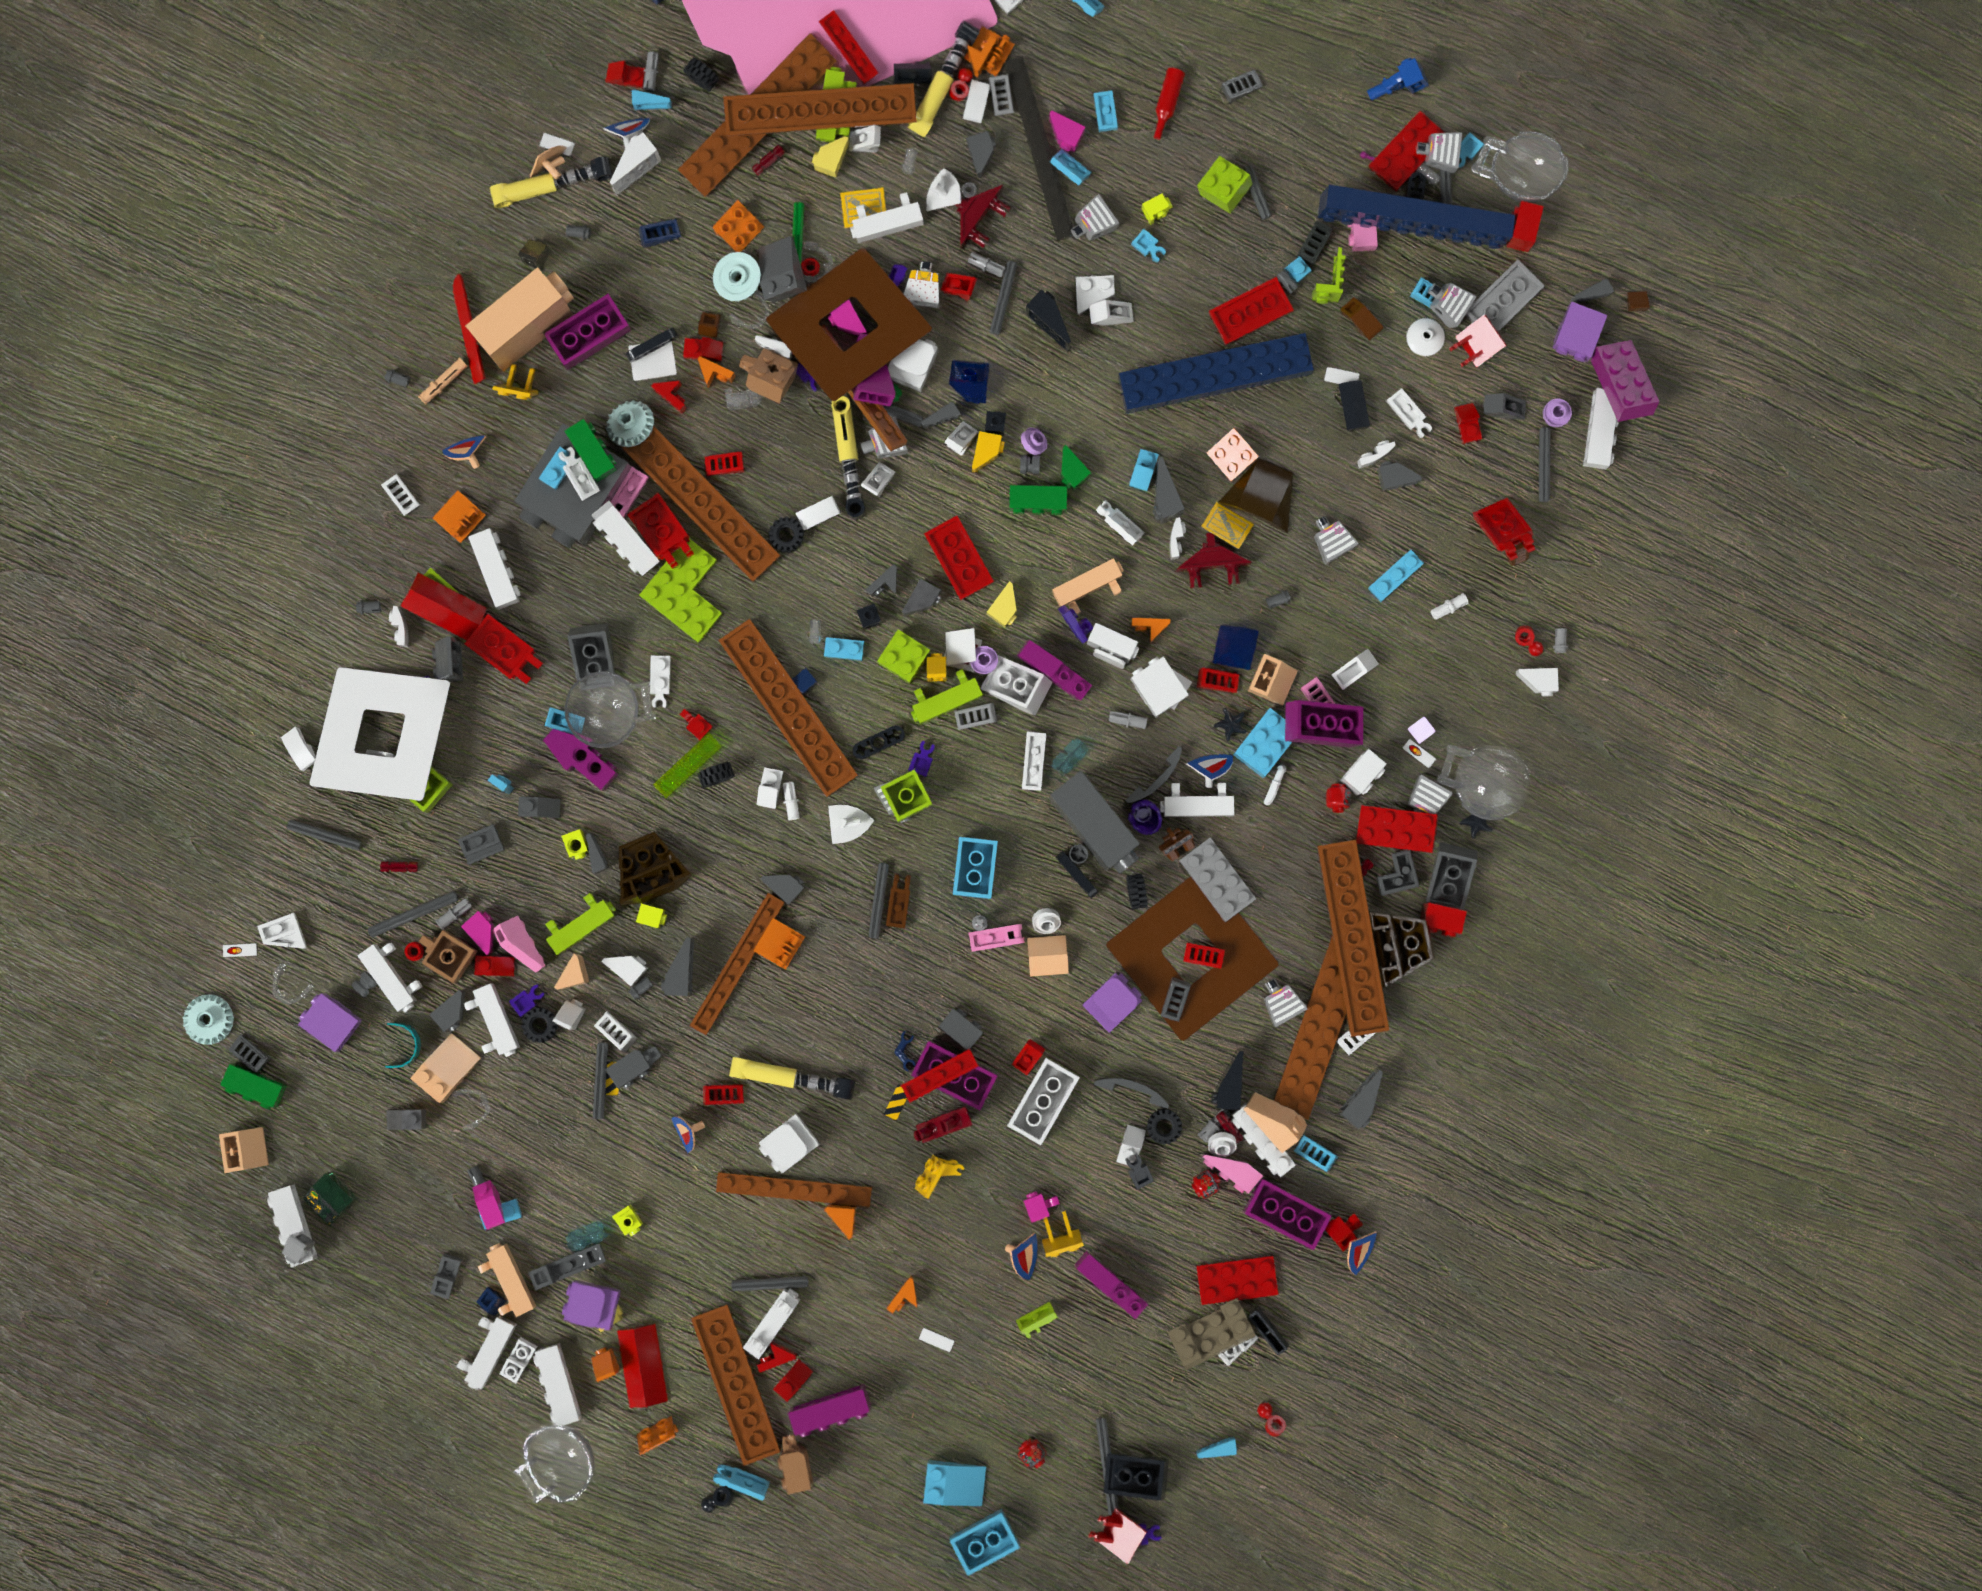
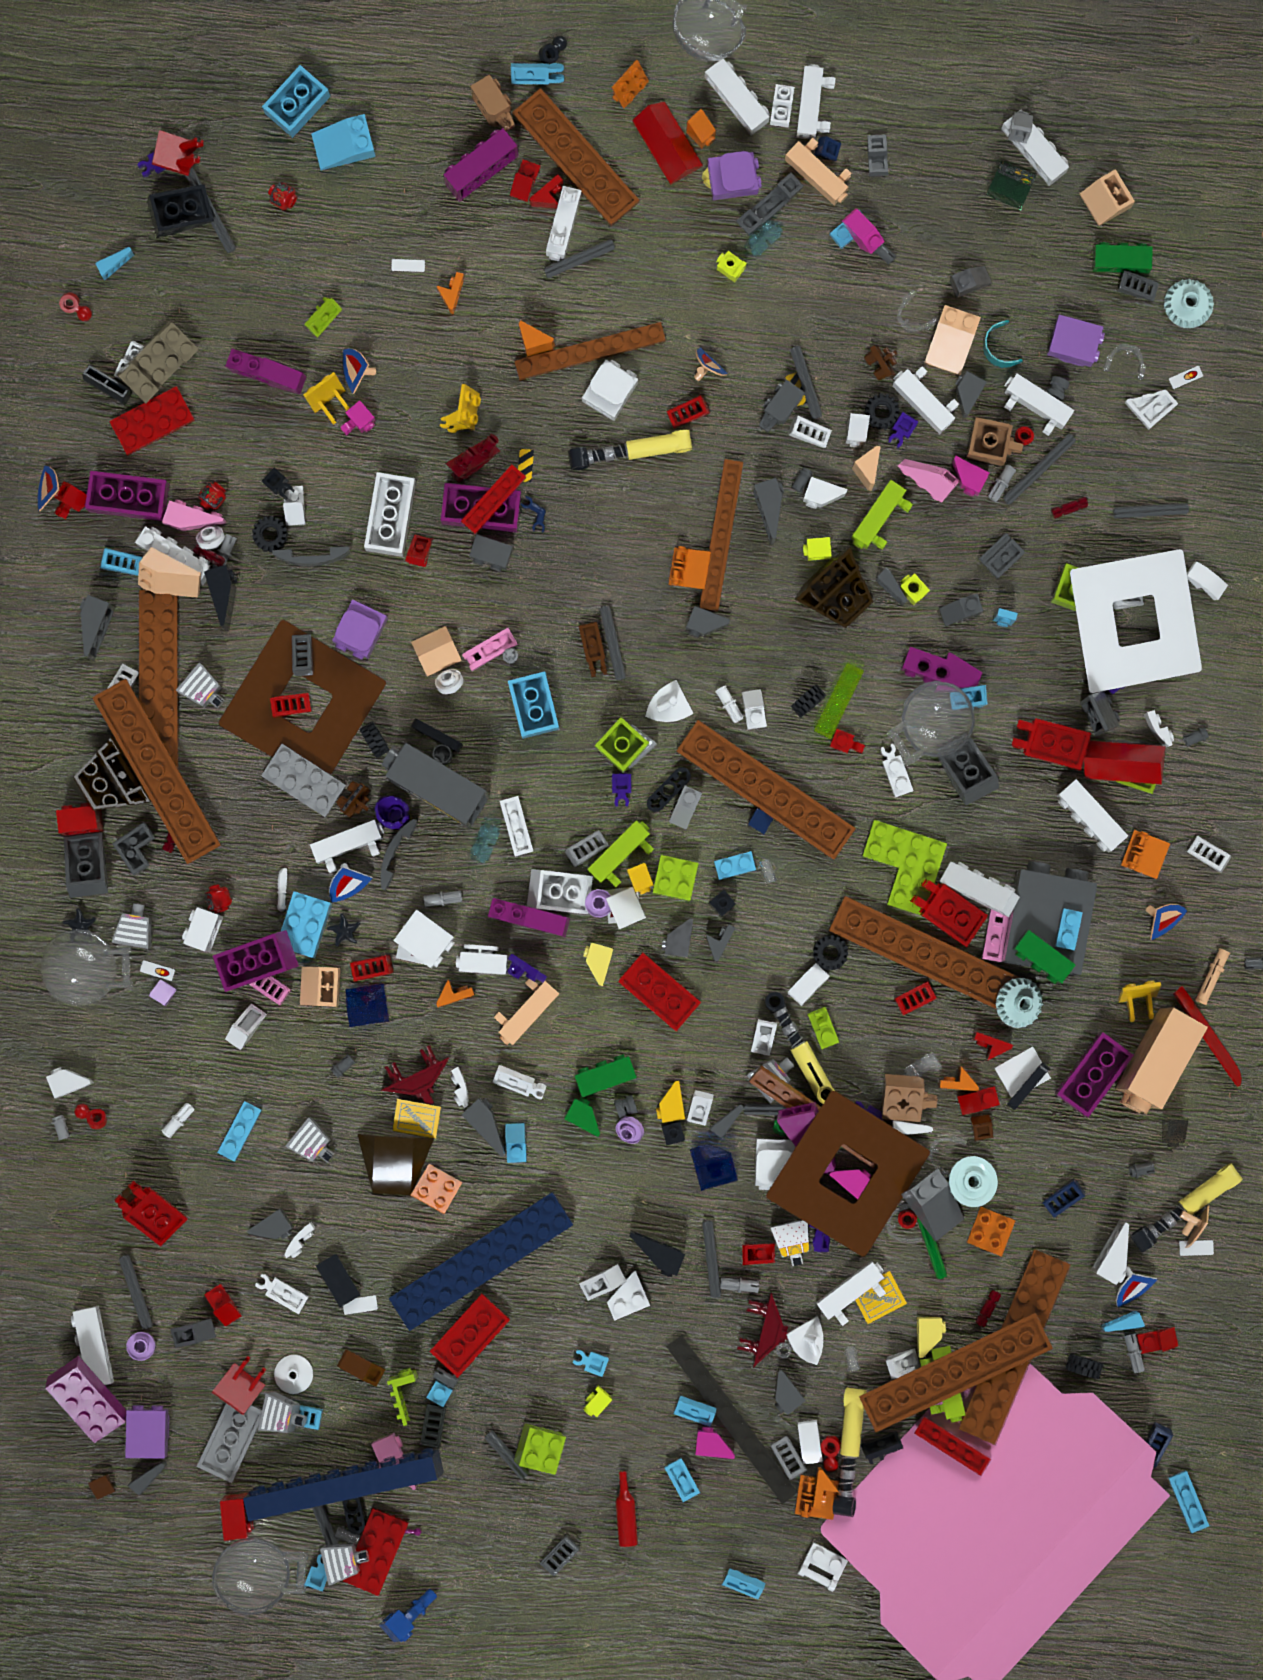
camera: 155 degrees right, 0 degrees up
(494, 966) = (944, 450): red slope -> none
(519, 1065) = (877, 355): none -> reddish brown hips
(579, 475) = (1045, 928): white plate -> none
(820, 469) = (823, 1028): none -> lime plate
(869, 719) = (685, 807): none -> light grey slope
(1095, 220) = (652, 1367): light grey torso -> none
(1397, 829) = (152, 889): red plate -> none

